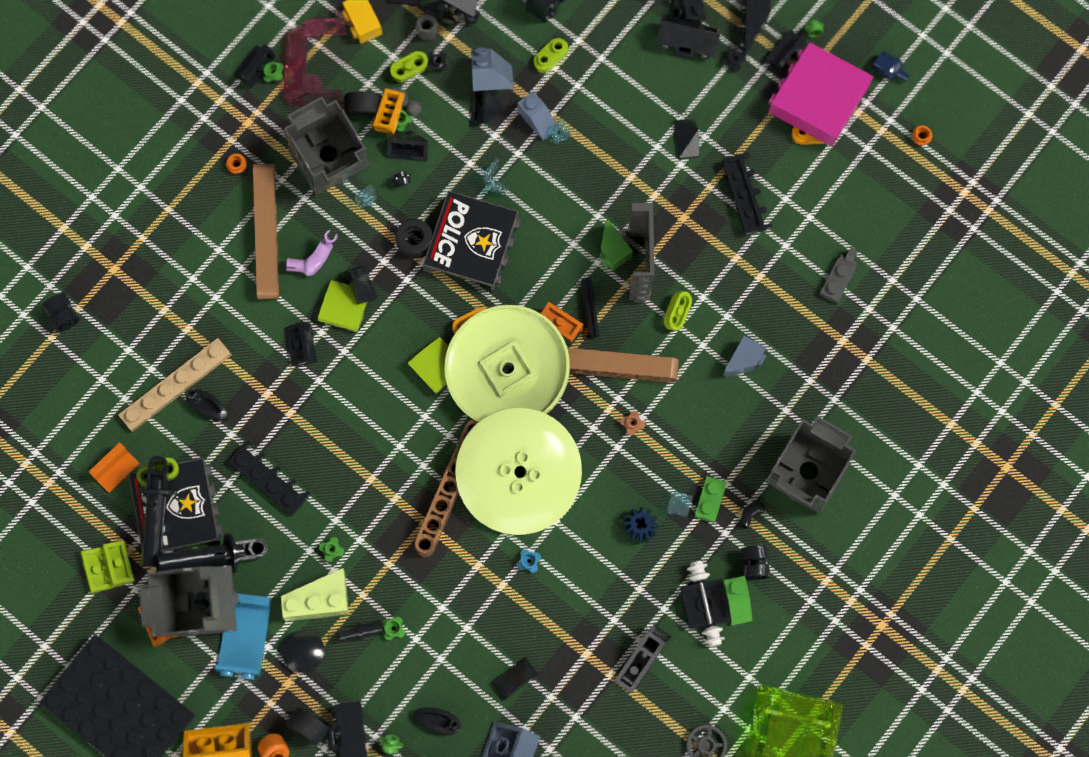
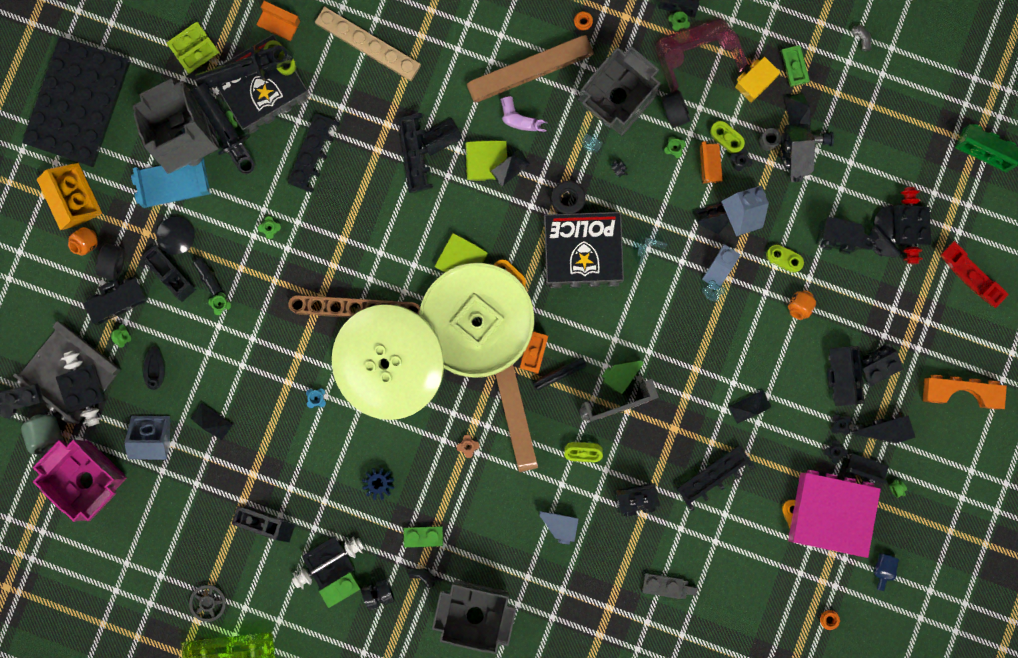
camera: 75 degrees right, 10 degrees up
(206, 405) = (358, 77): black arm -> none
(309, 375) = (413, 153): none -> black hinge
(317, 599) = (221, 233): yellowish green wedge -> none
(341, 671) = (168, 273): none -> black slope
(393, 121) = (662, 128): light orange slope -> none
(407, 146) = (653, 162): black slope -> none
(412, 107) = (689, 154): dark grey plate -> none
(428, 91) = (710, 163): none -> orange panel
(603, 54) = (802, 305): none -> orange head
(679, 504) = (409, 511): clear light blue plate -> none
(742, 272) = (637, 498): none -> black hinge
(757, 79) = (830, 452): none -> black plate

